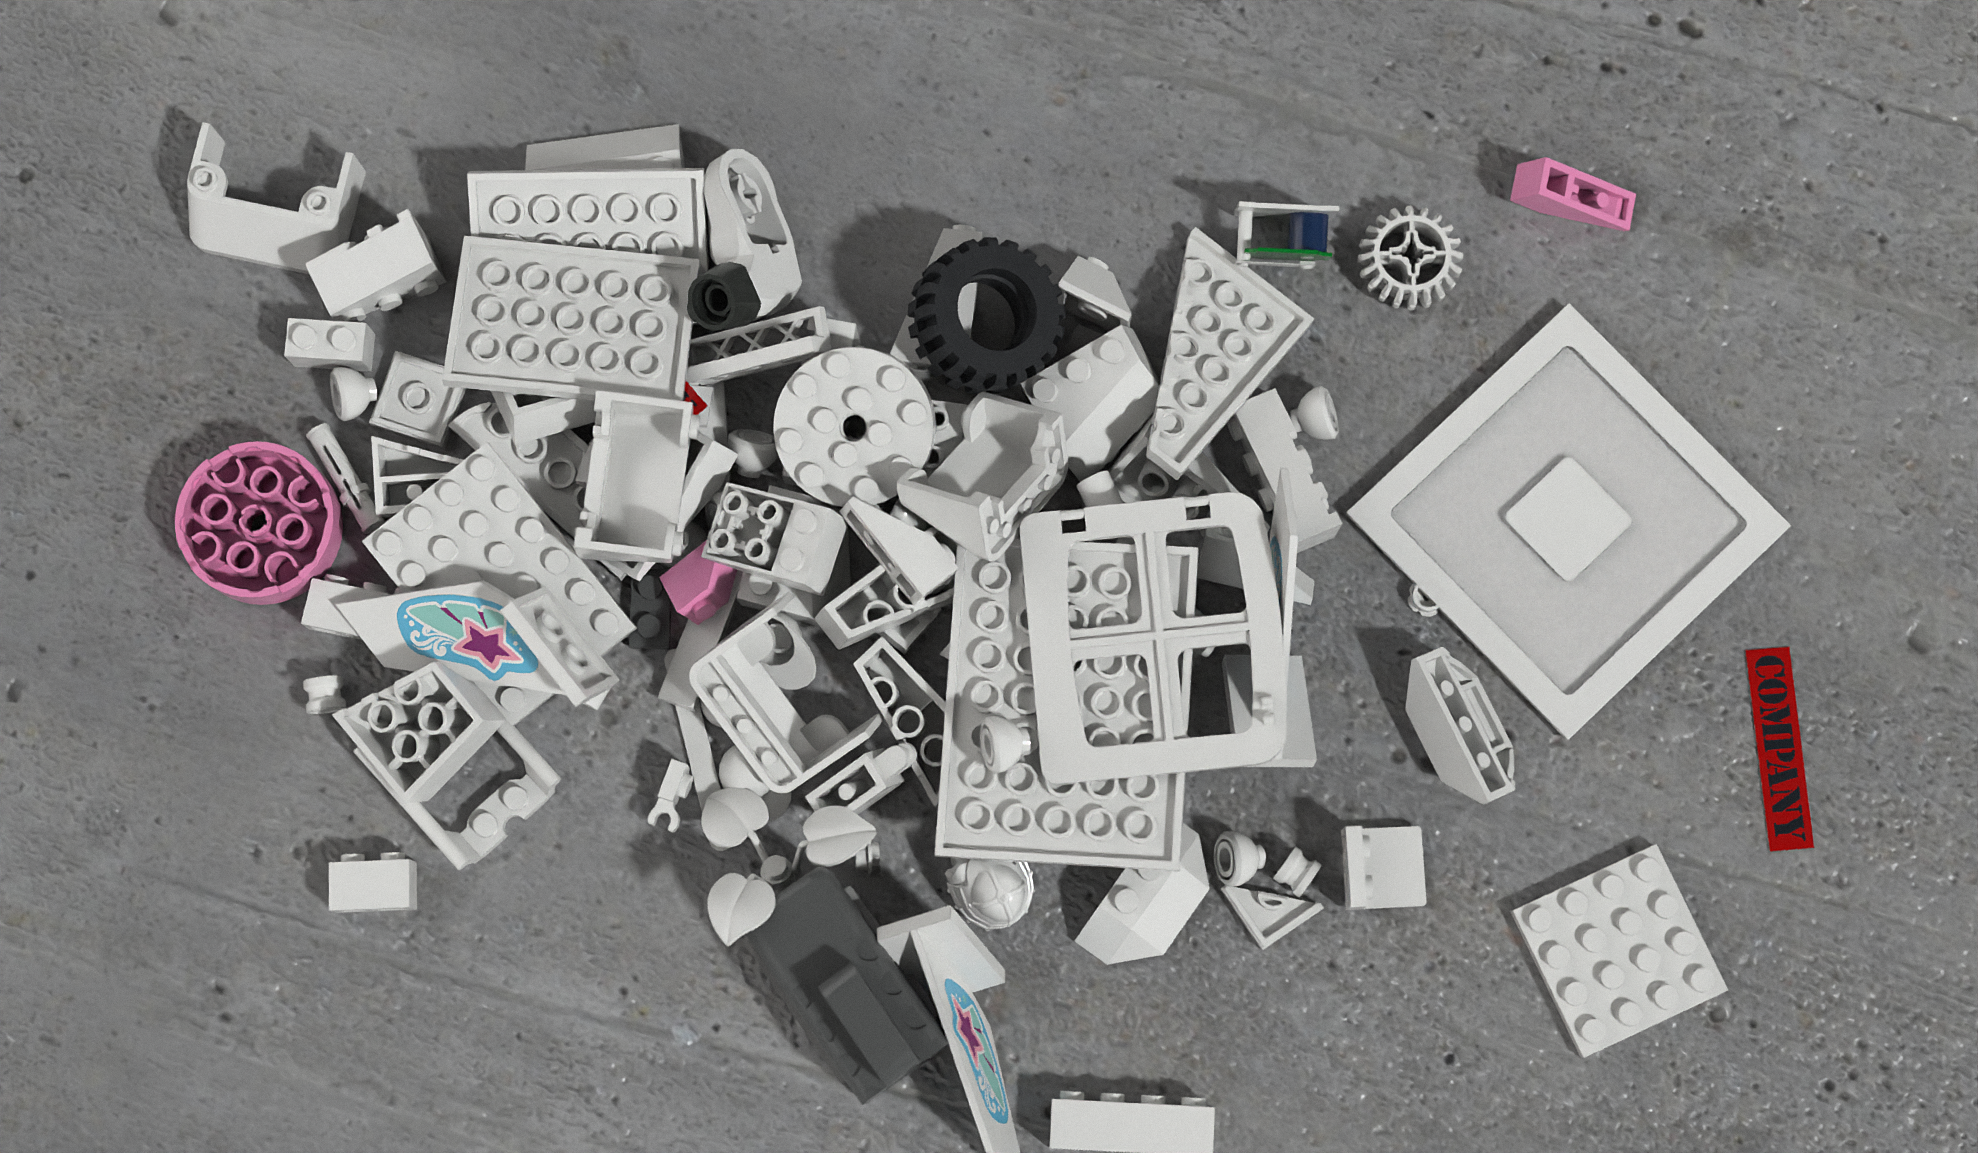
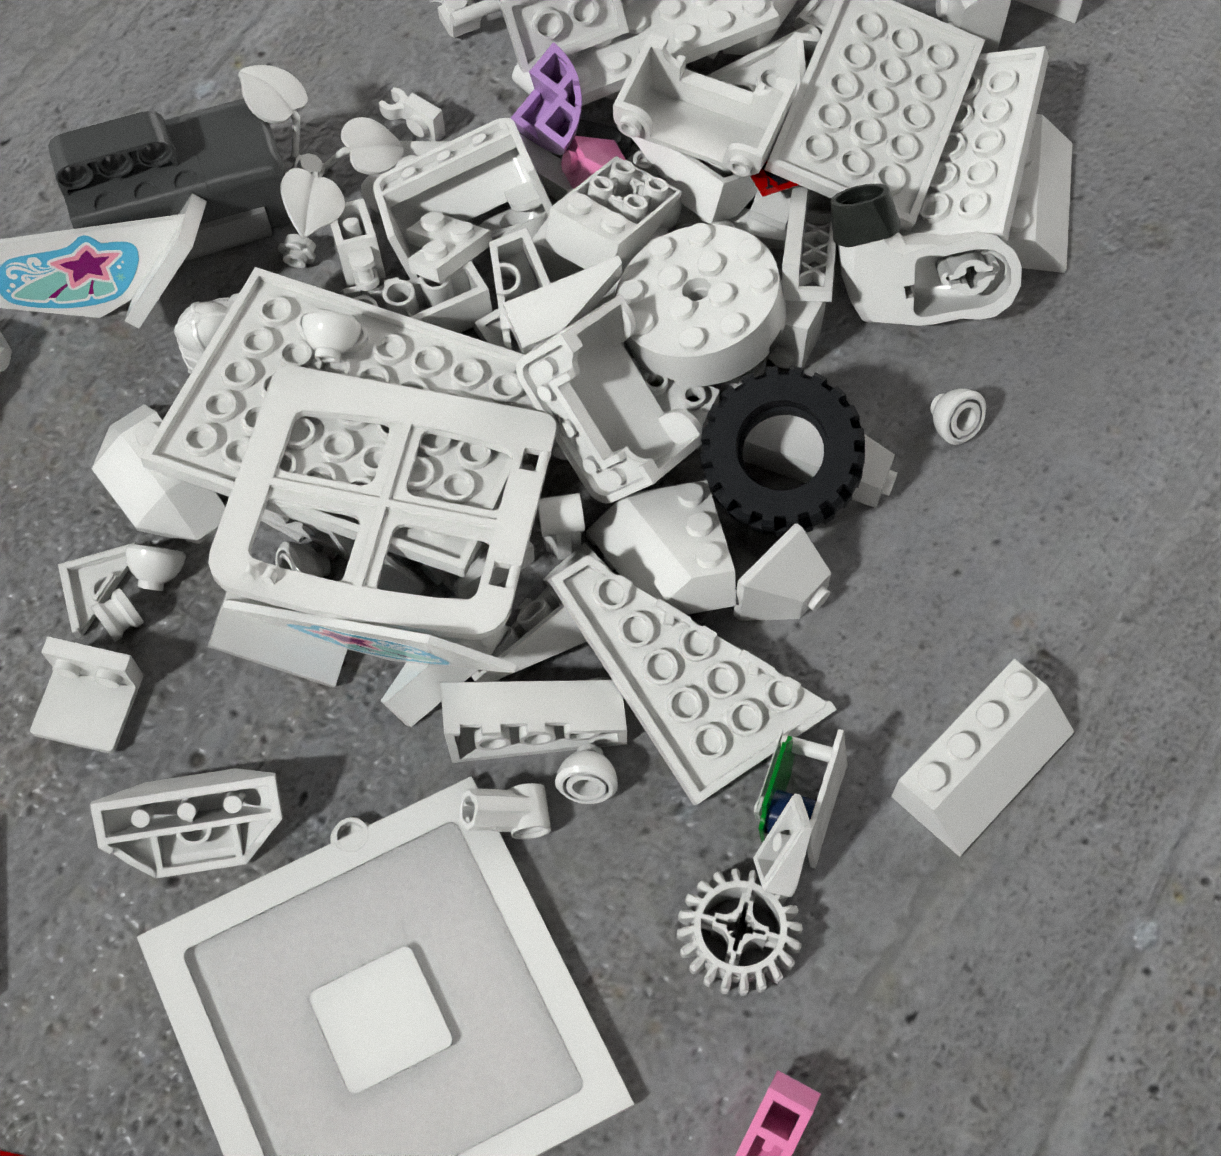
camera: 105 degrees right, 15 degrees down
(648, 640) = (554, 106): none -> lavender brick
(833, 688) = (445, 245): none -> white plate
(876, 188) = (958, 415): none -> white brick
(1199, 101) = (984, 758): none -> white slope
(1207, 719) = (303, 559): none -> white brick
(1346, 229) = (784, 850): none -> white slope
(1368, 462) = (514, 810): none -> white piece

